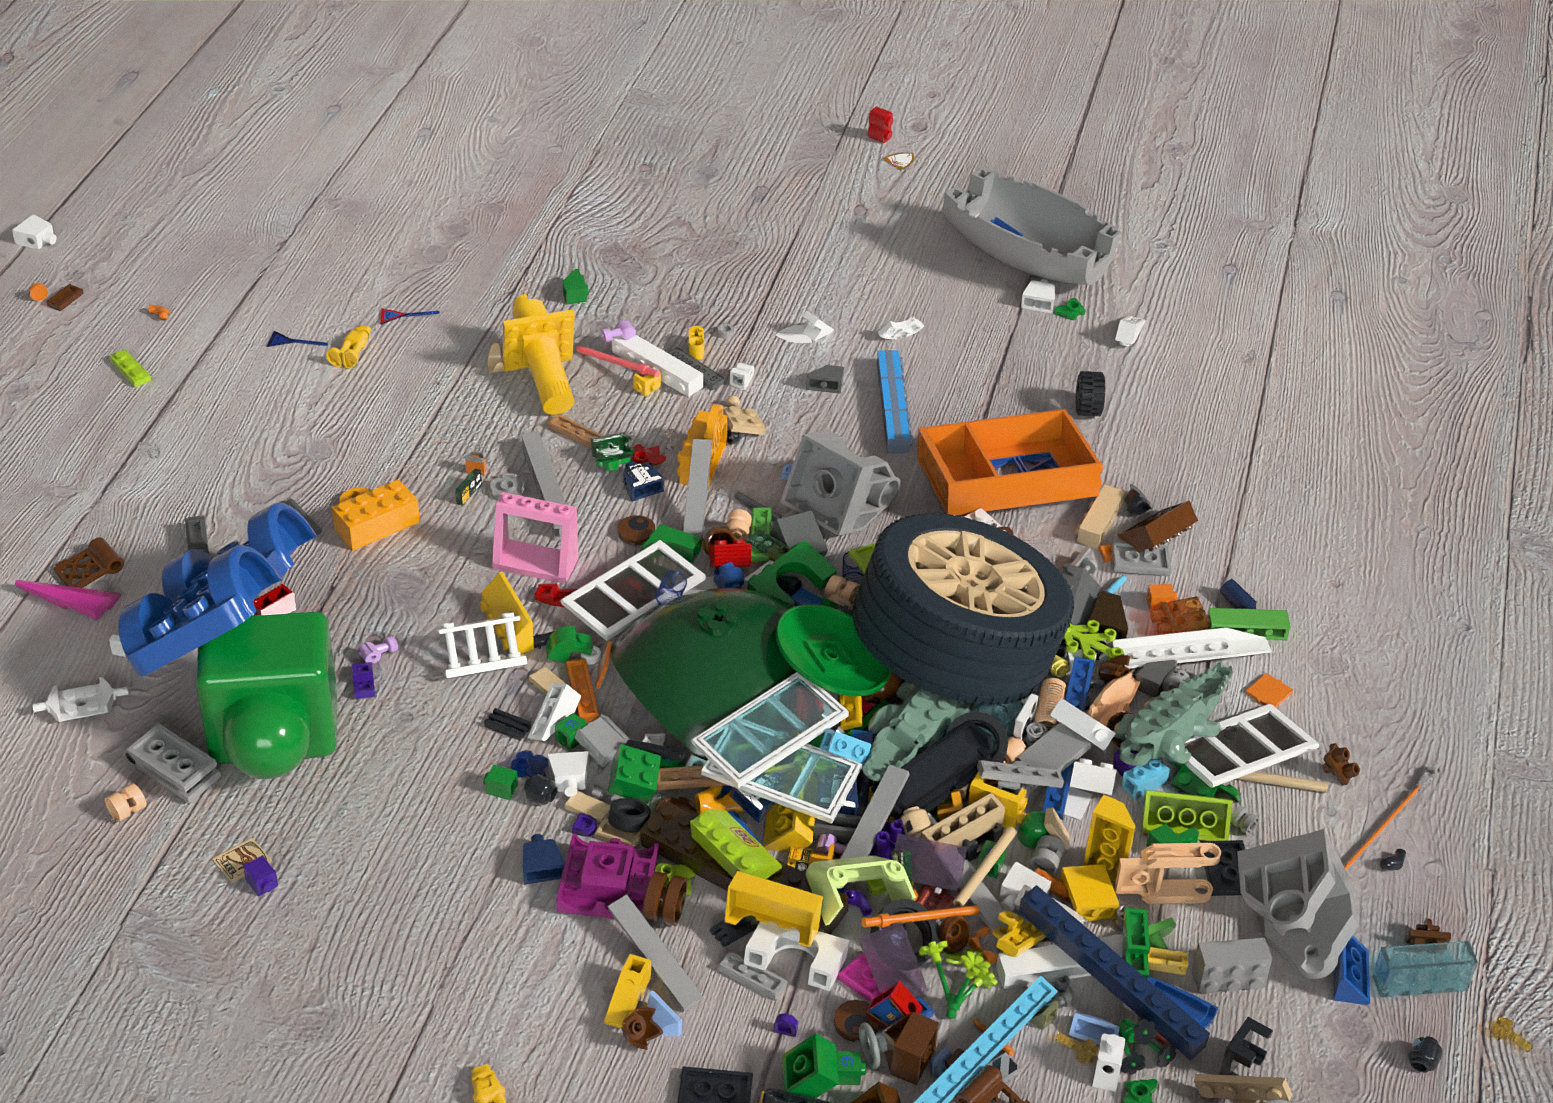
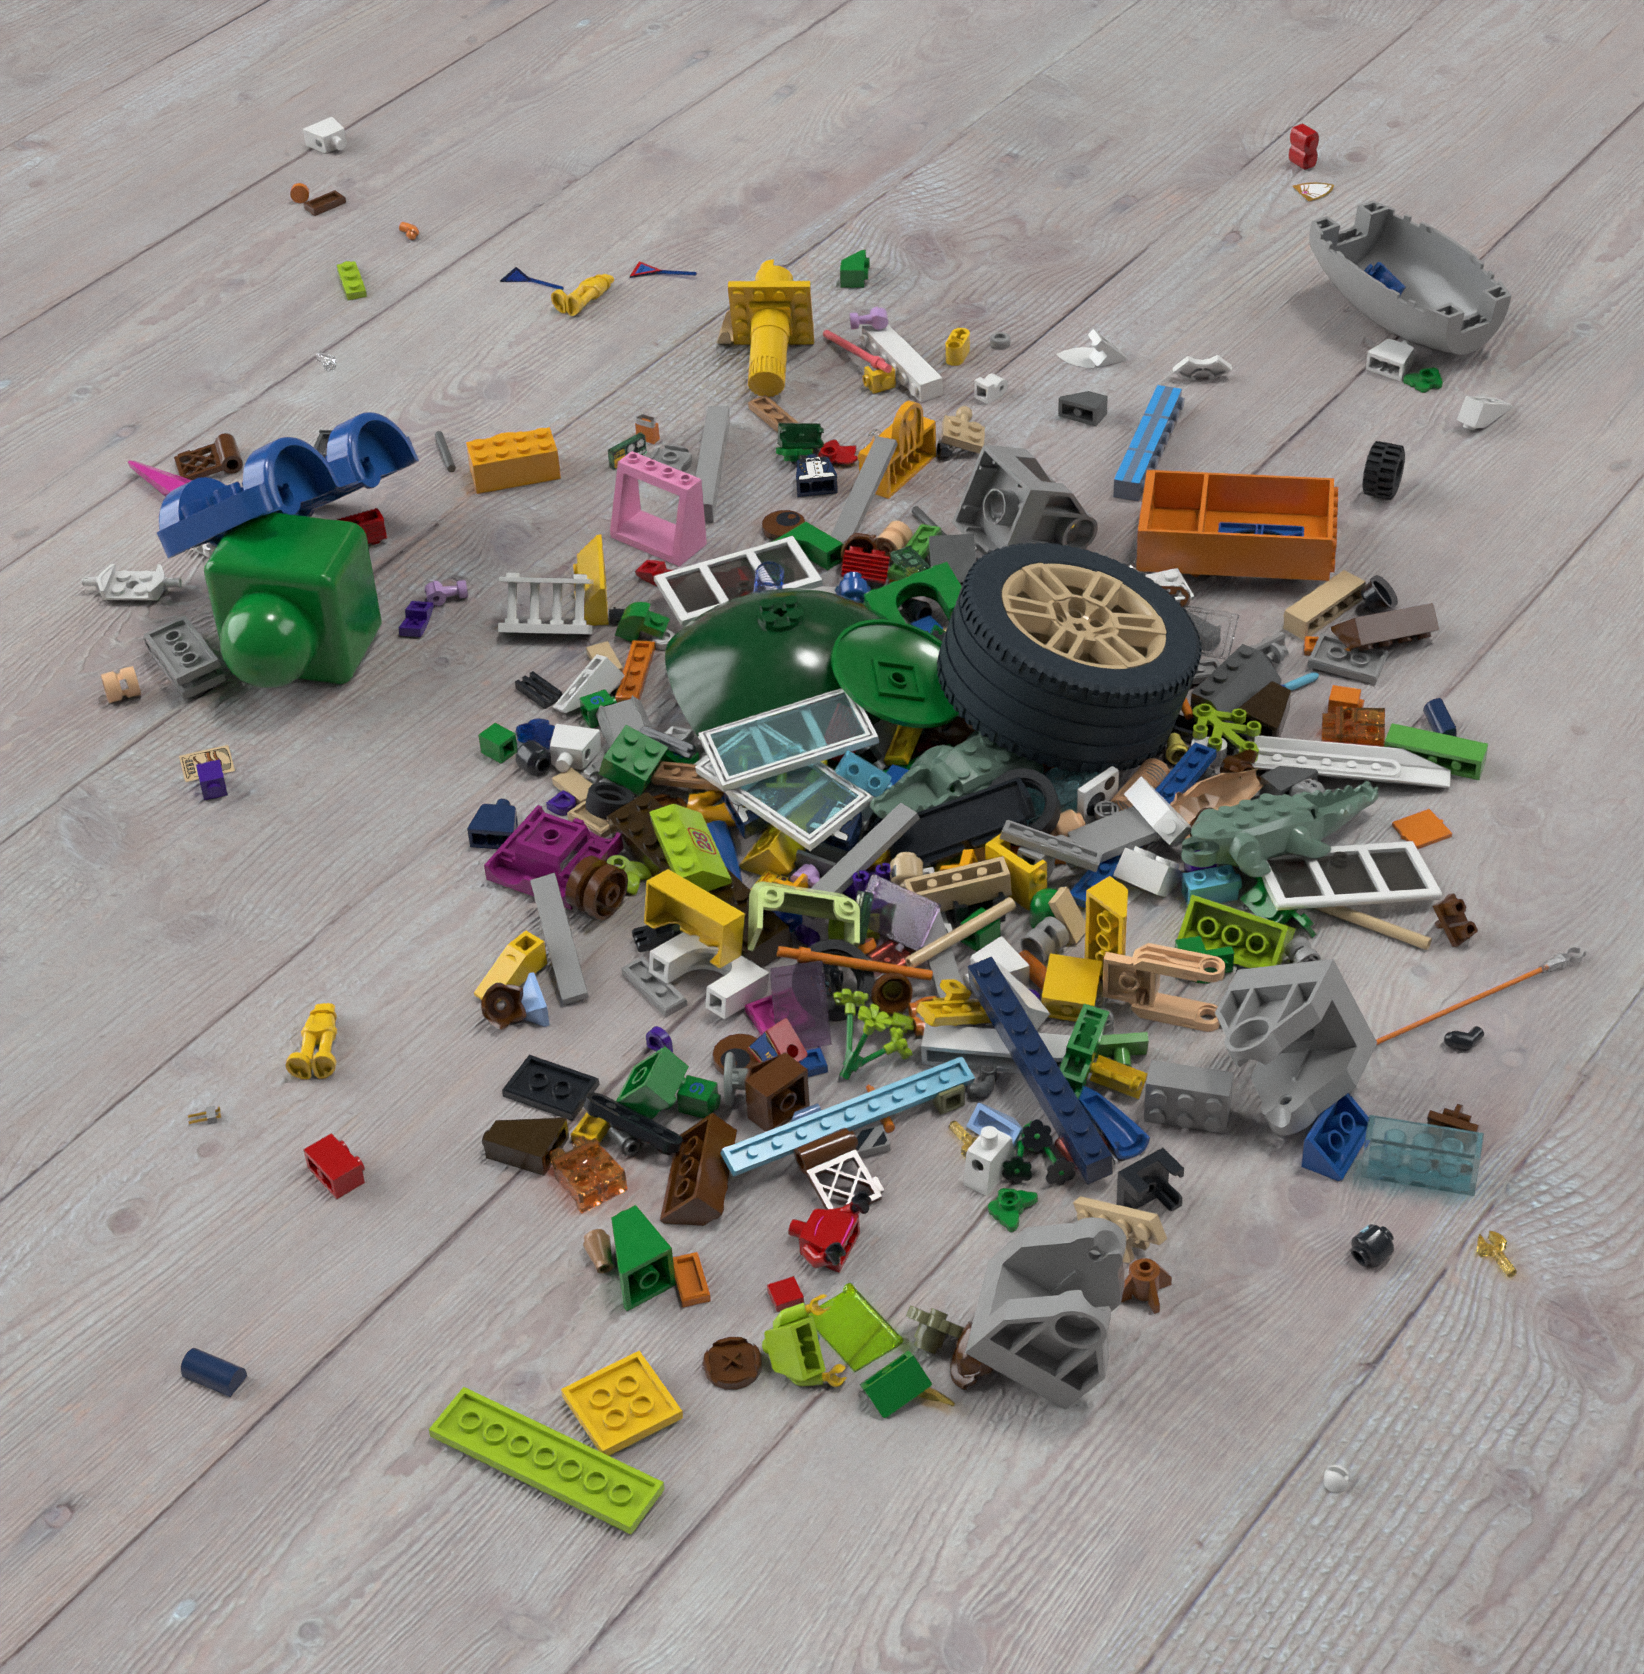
camera: 25 degrees right, 0 degrees up
(603, 664) = (660, 656): orange piece -> none
(710, 378) = (951, 381): dark grey tile -> none

